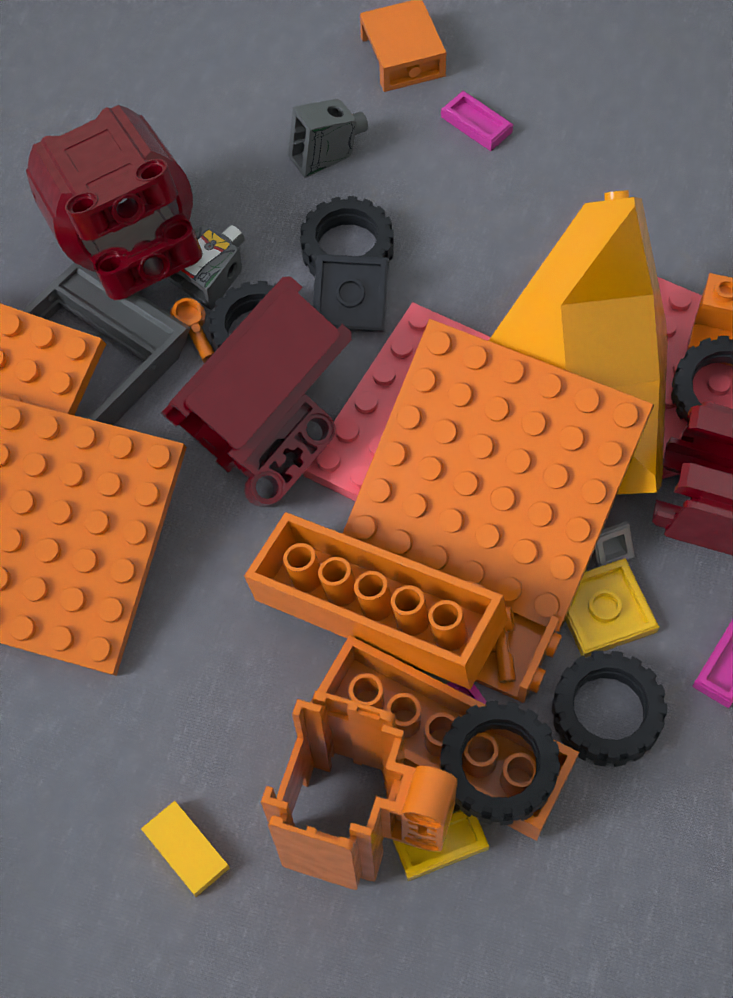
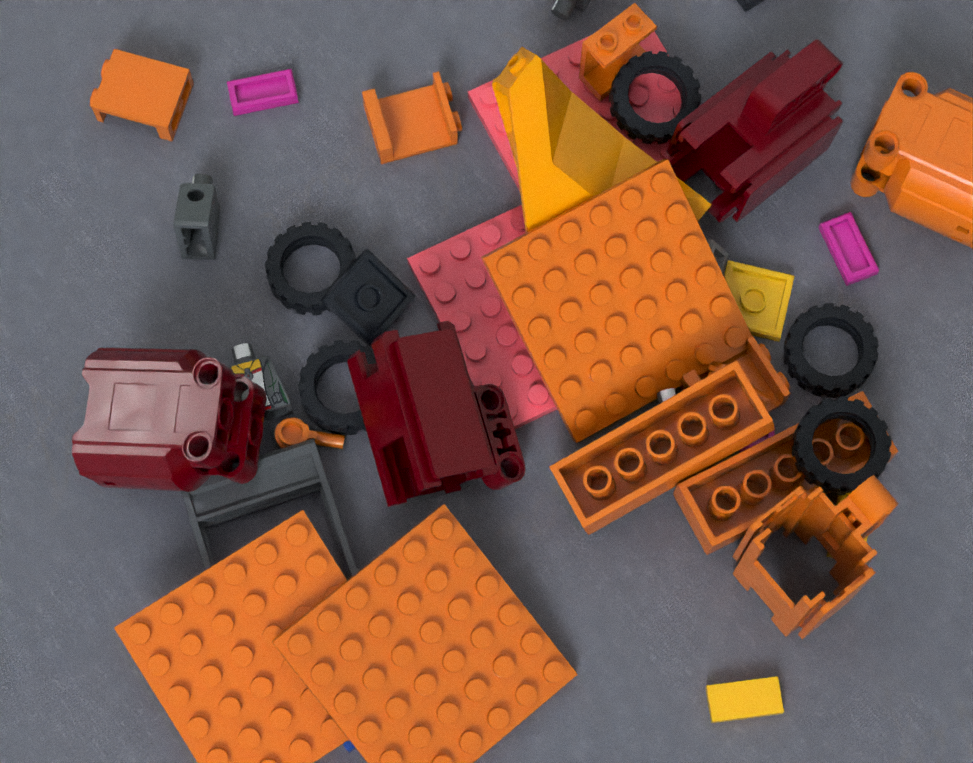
camera: 60 degrees left, 10 degrees up
(527, 224) = (412, 121): none -> orange panel

